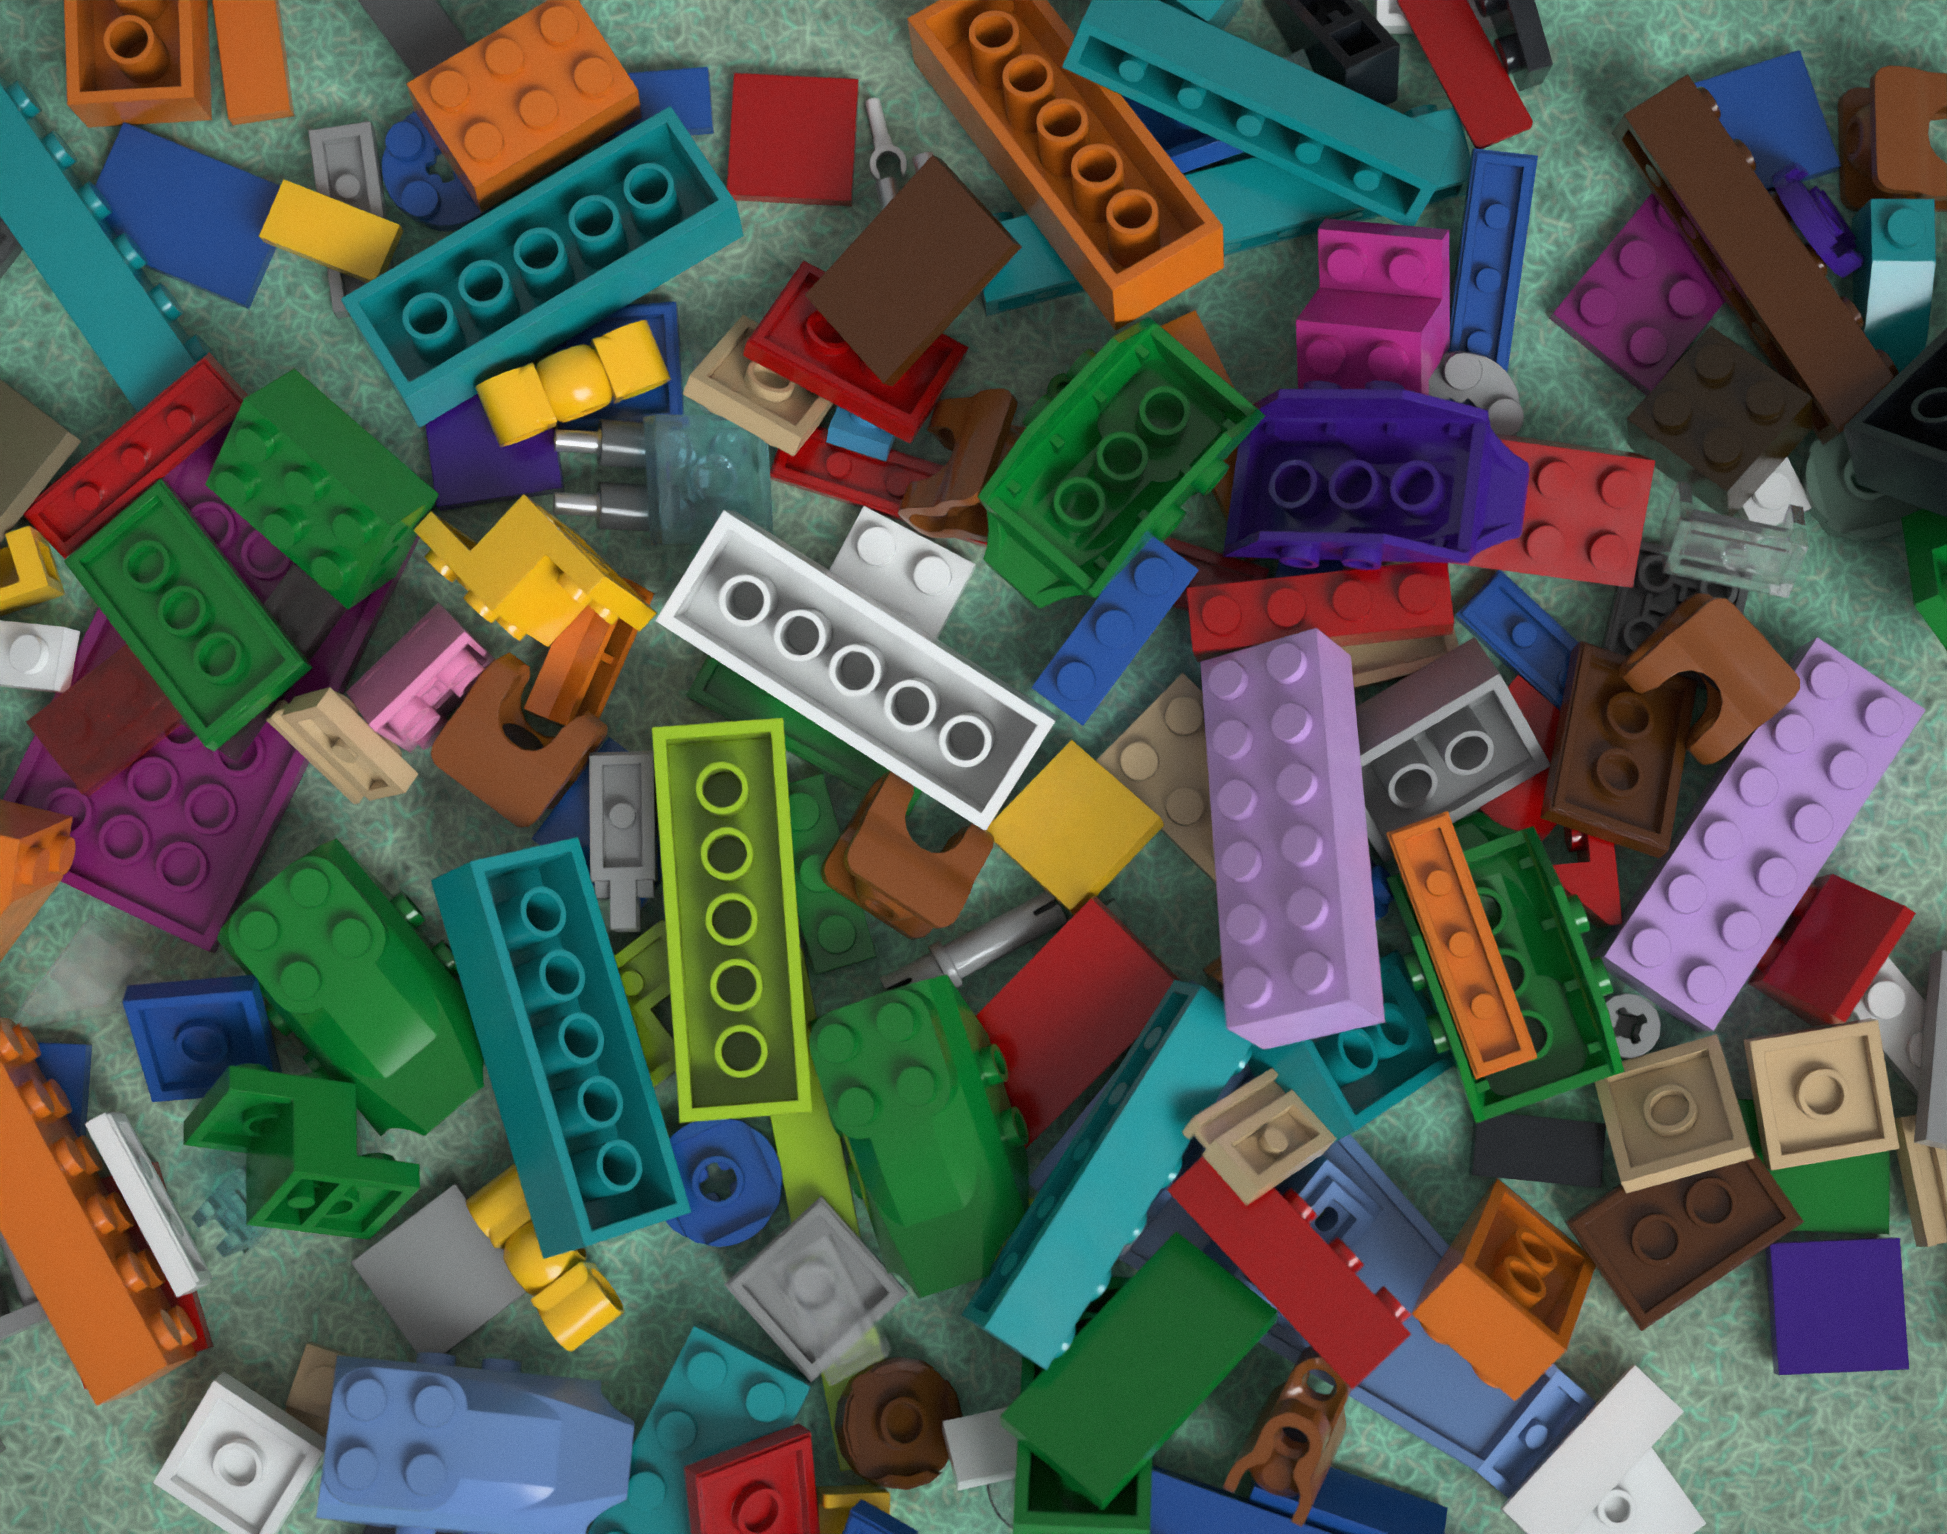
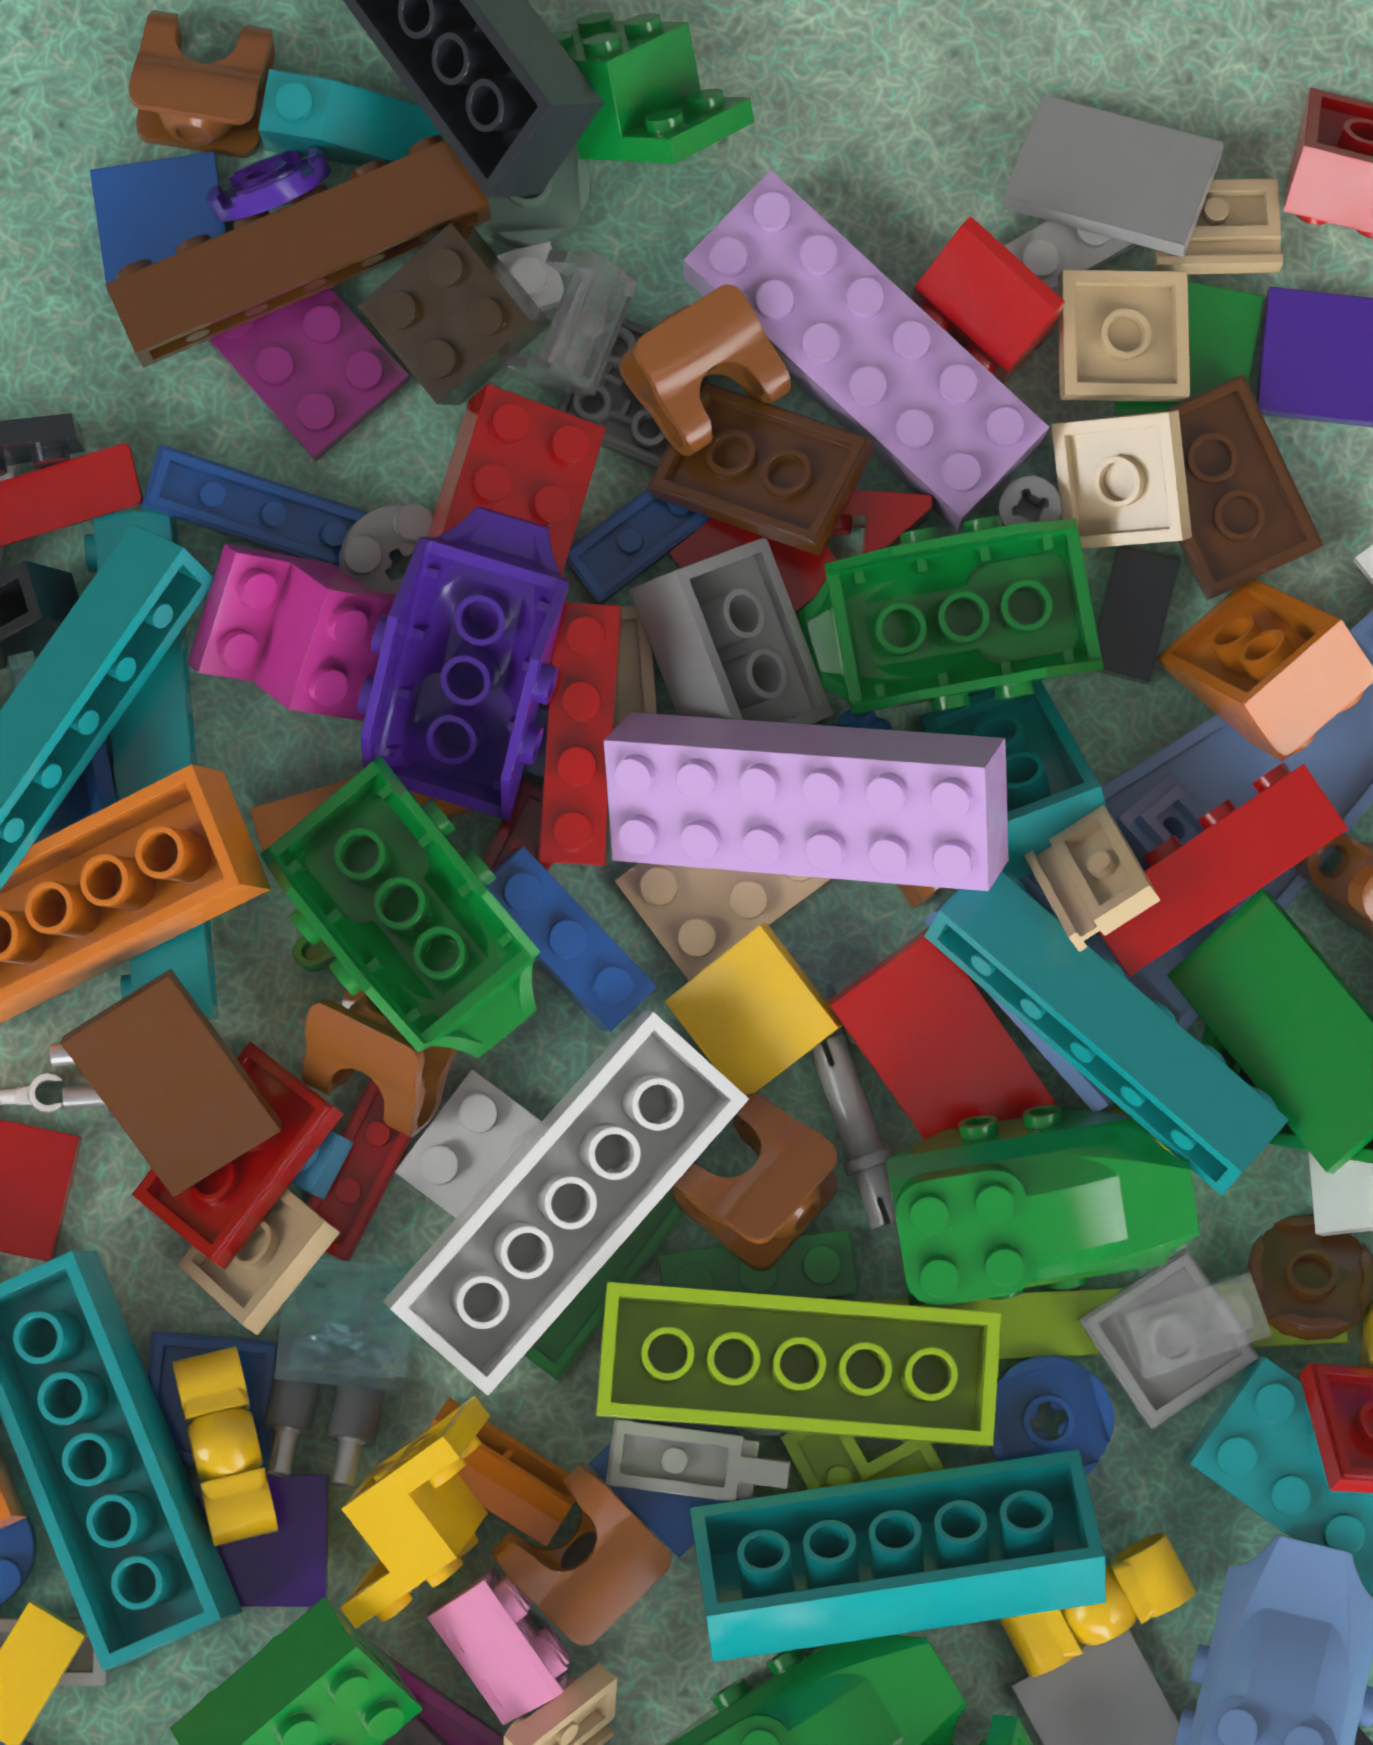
camera: 85 degrees left, 0 degrees up
(1461, 945) = (930, 653): orange tile -> none

